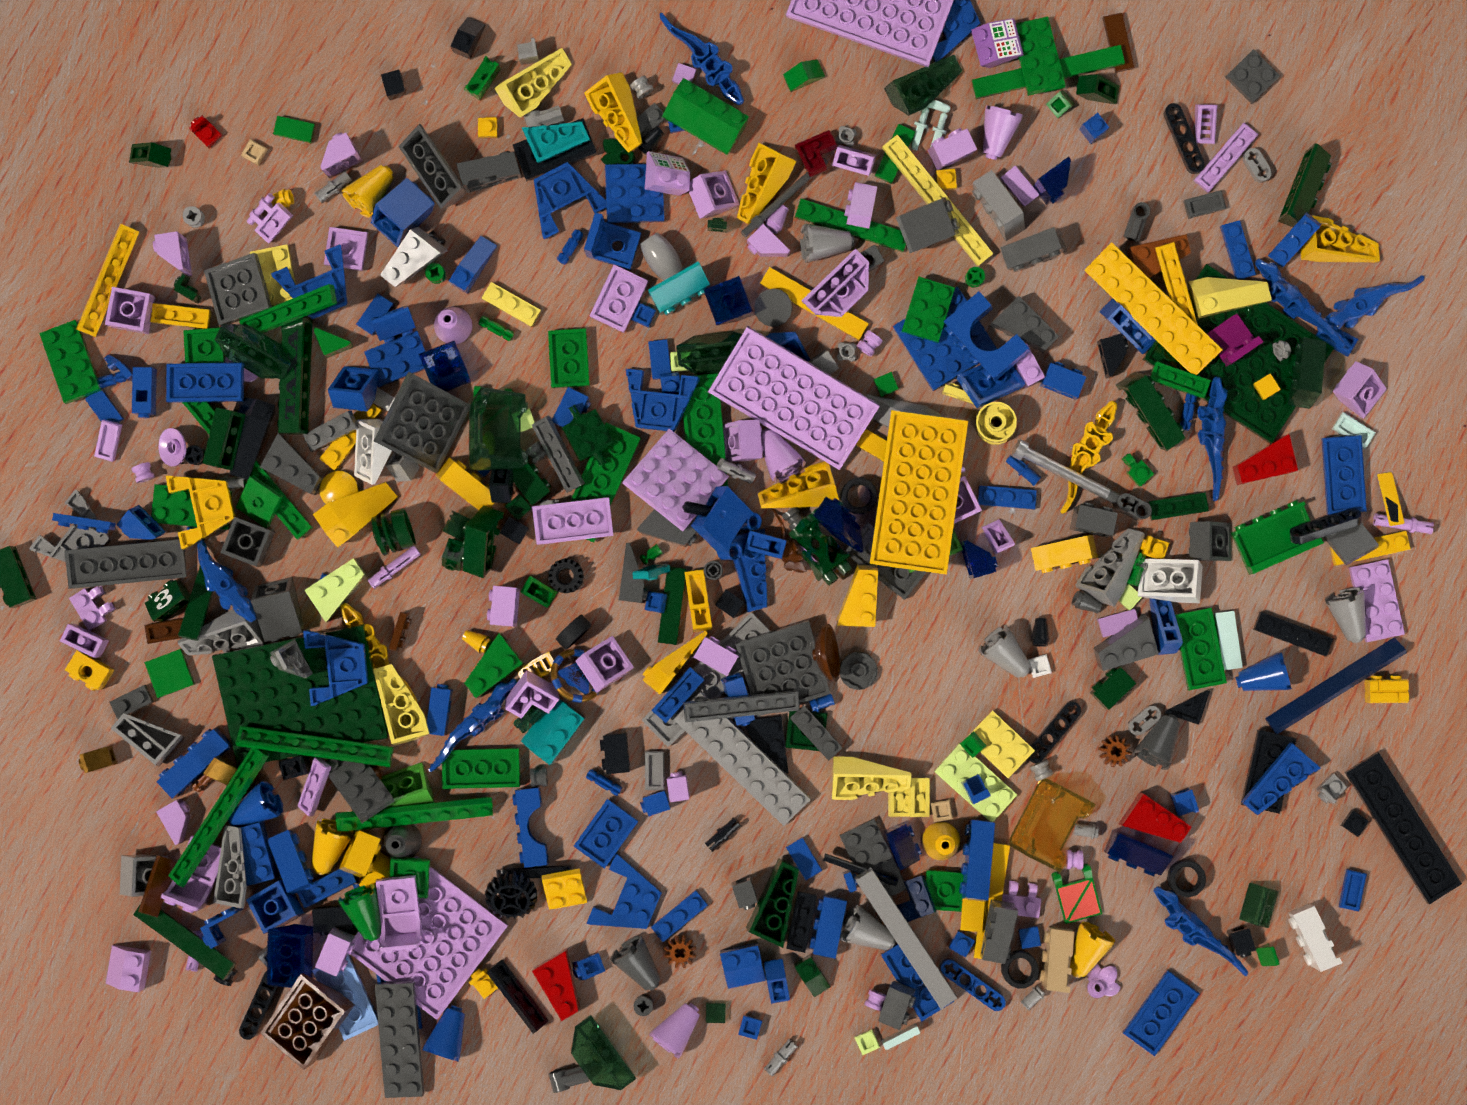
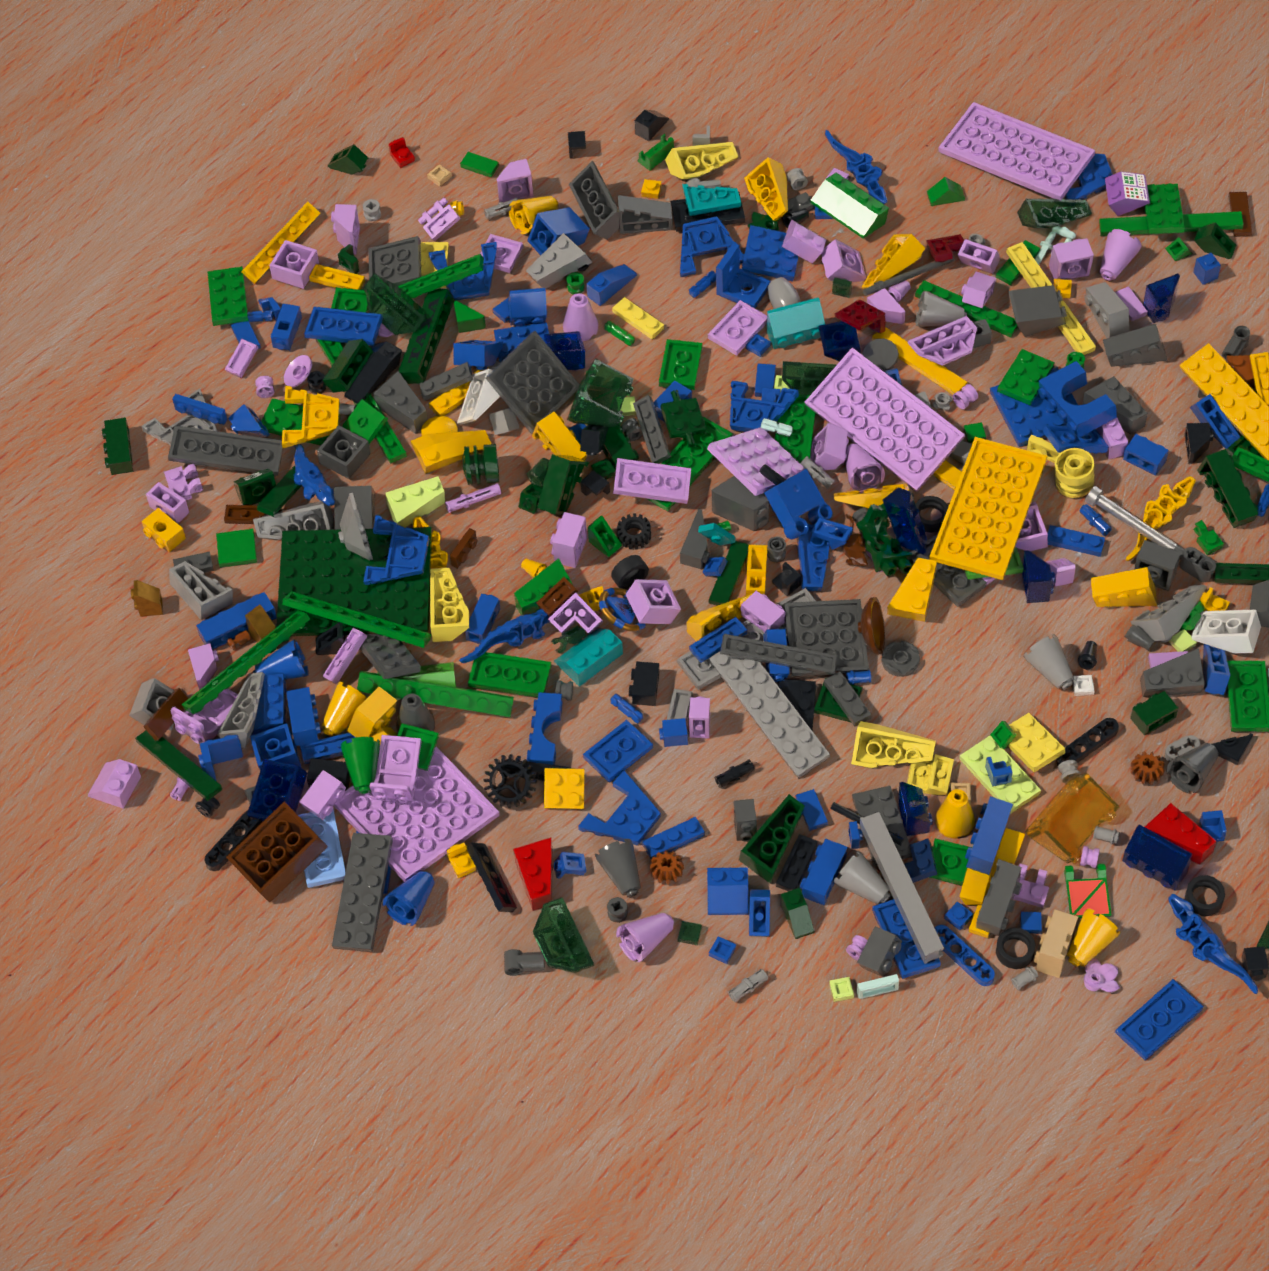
camera: 15 degrees right, 30 degrees down
(508, 683) = (556, 596): none -> reddish brown plate
(689, 427) = (780, 428): none -> light aqua piece
(745, 270) = (862, 315): none -> dark red bracket

